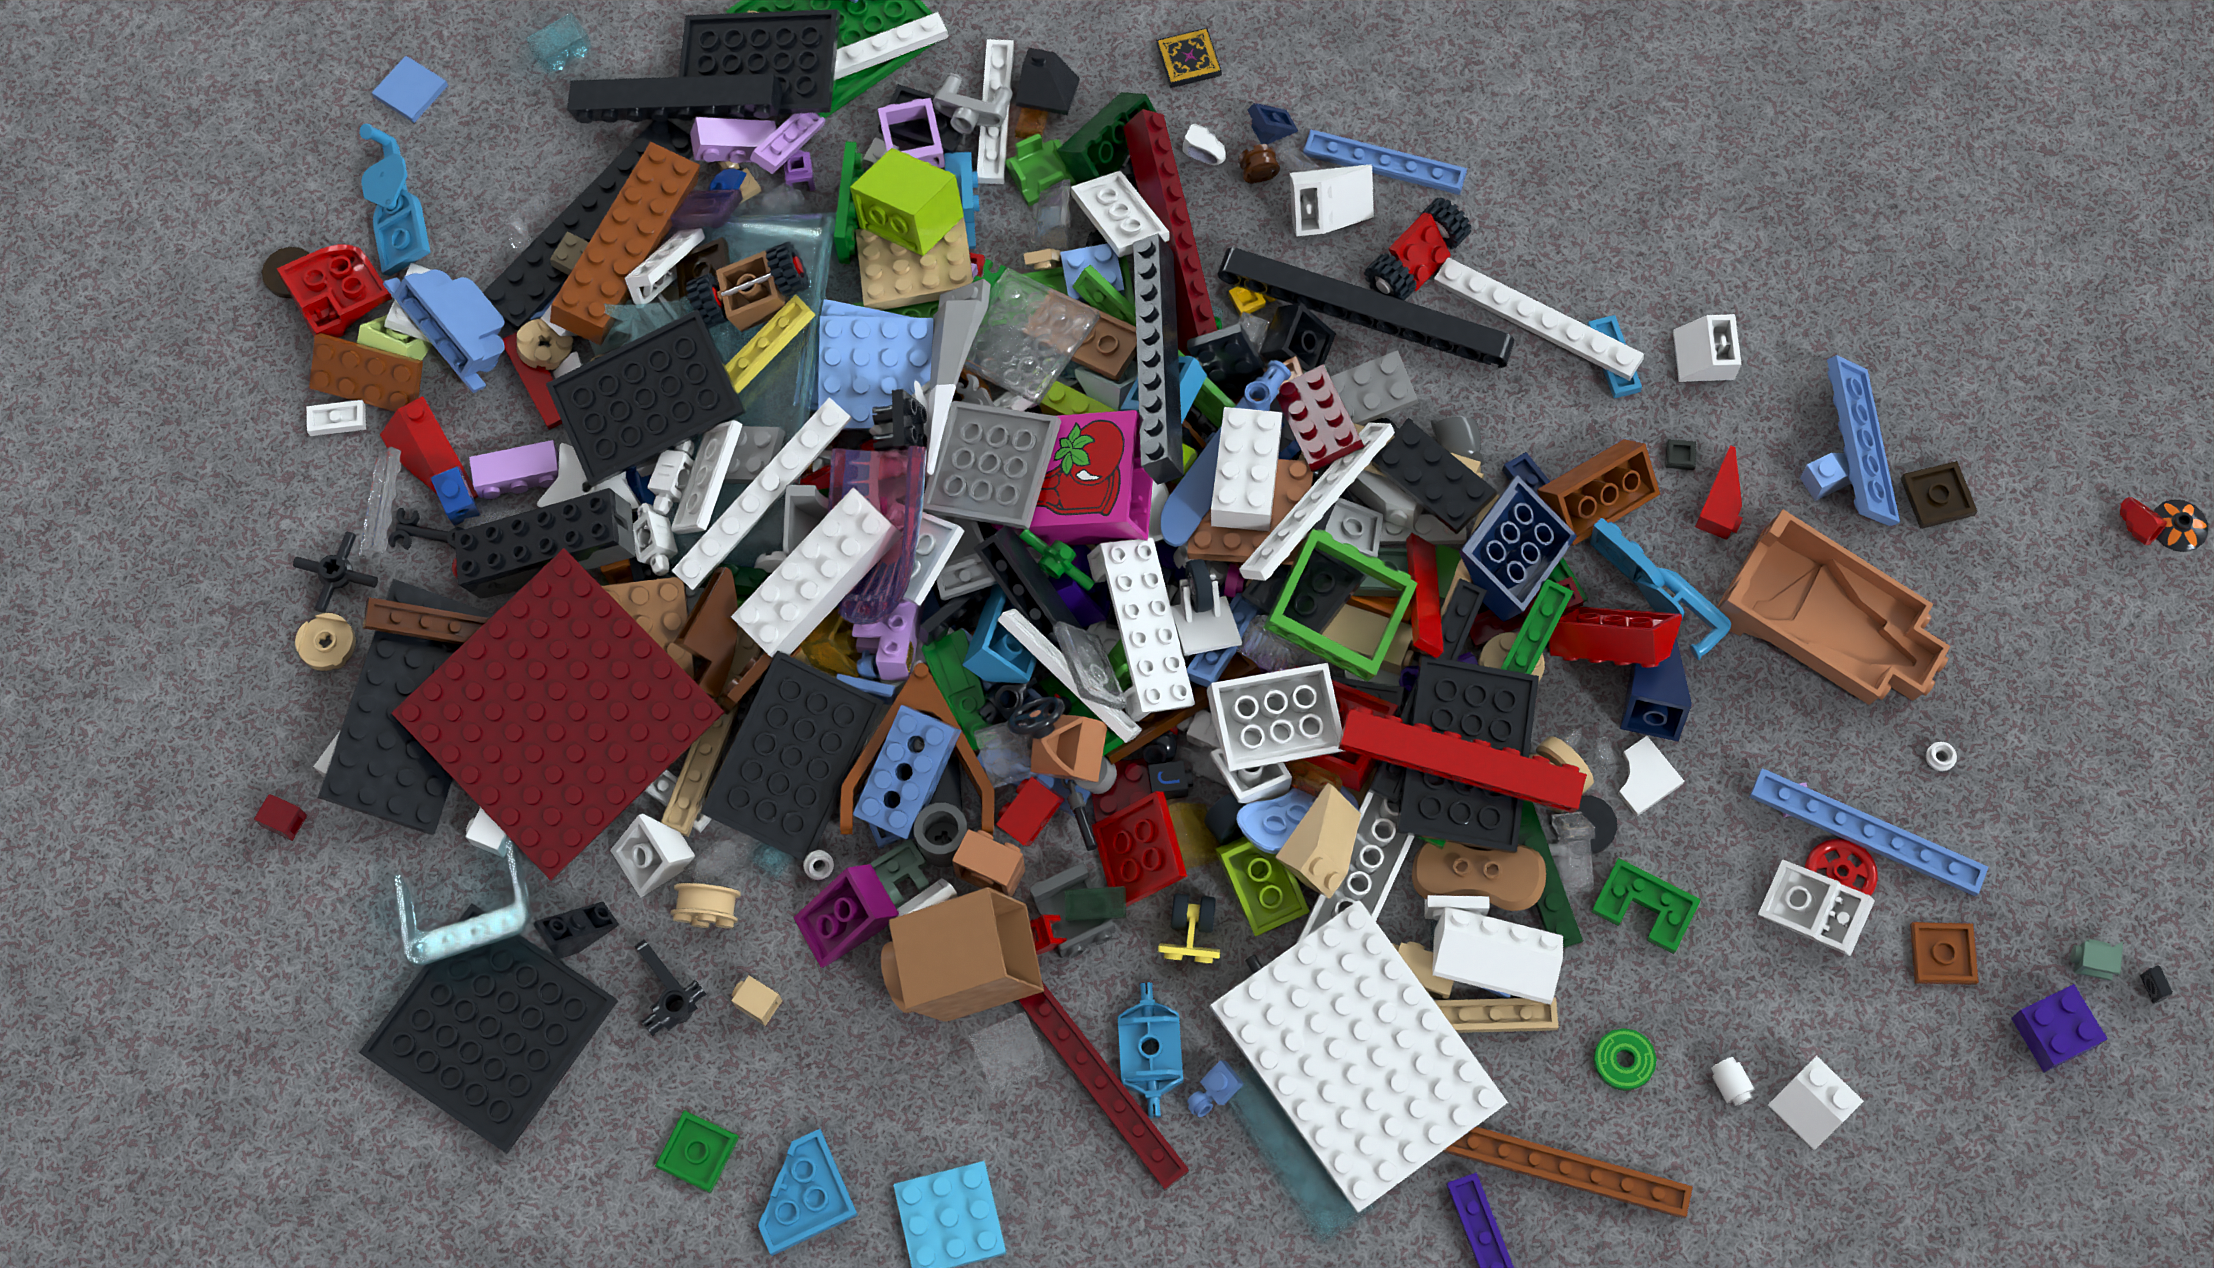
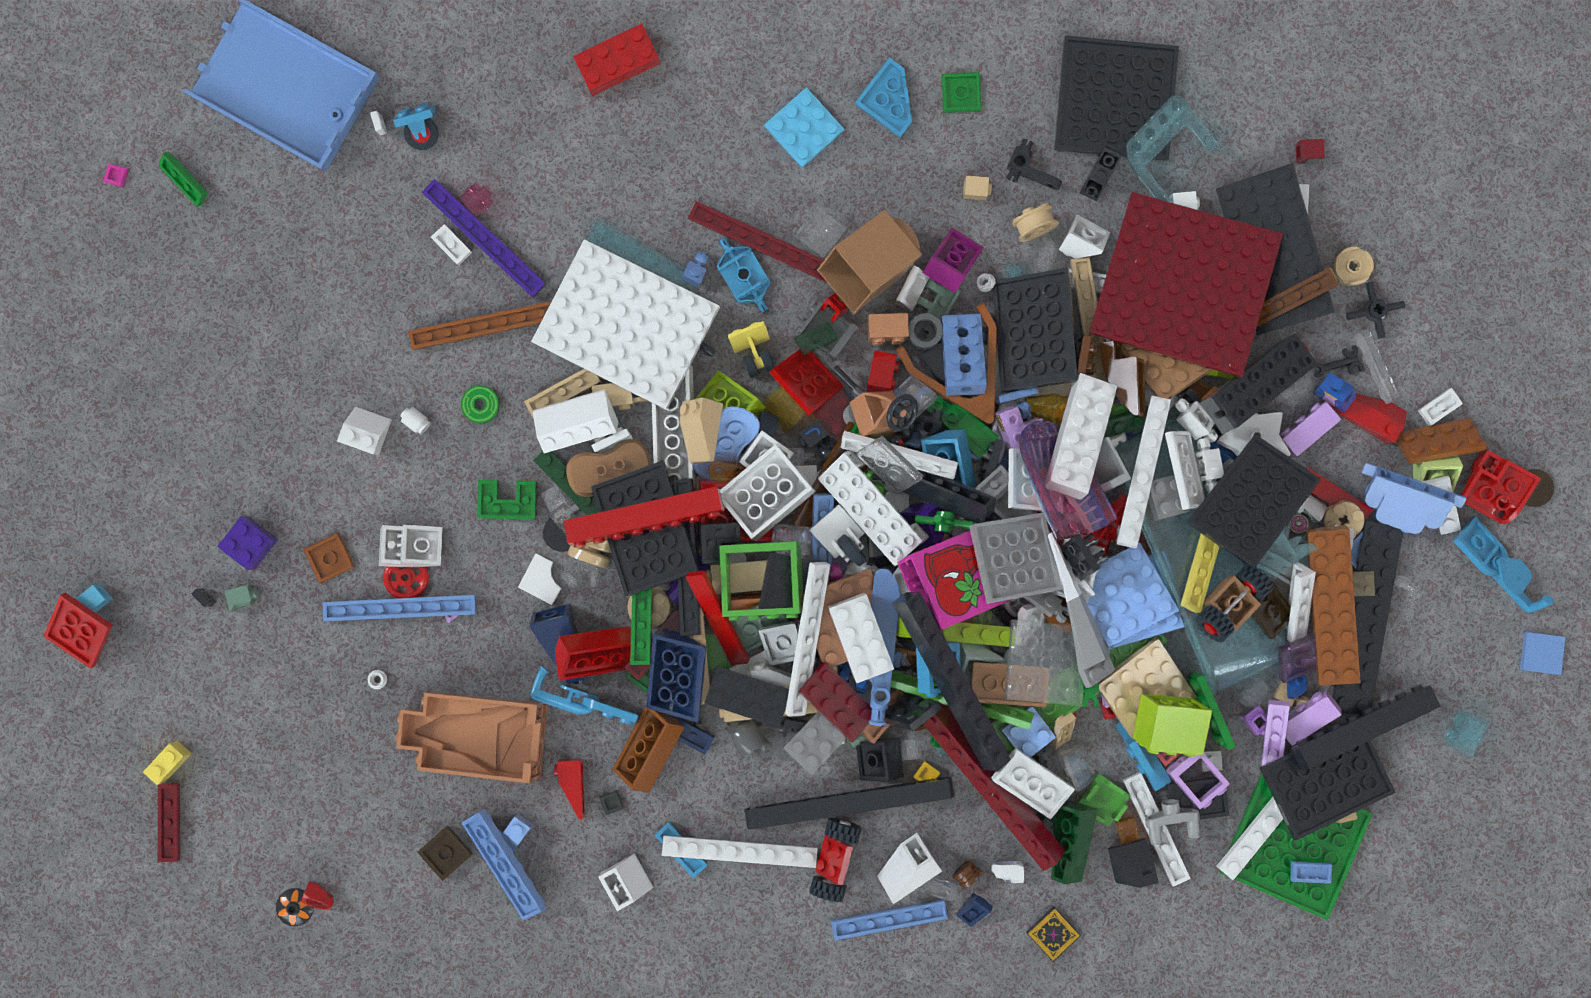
camera: 150 degrees right, 20 degrees up
(1380, 696) = (713, 535): none -> black plate

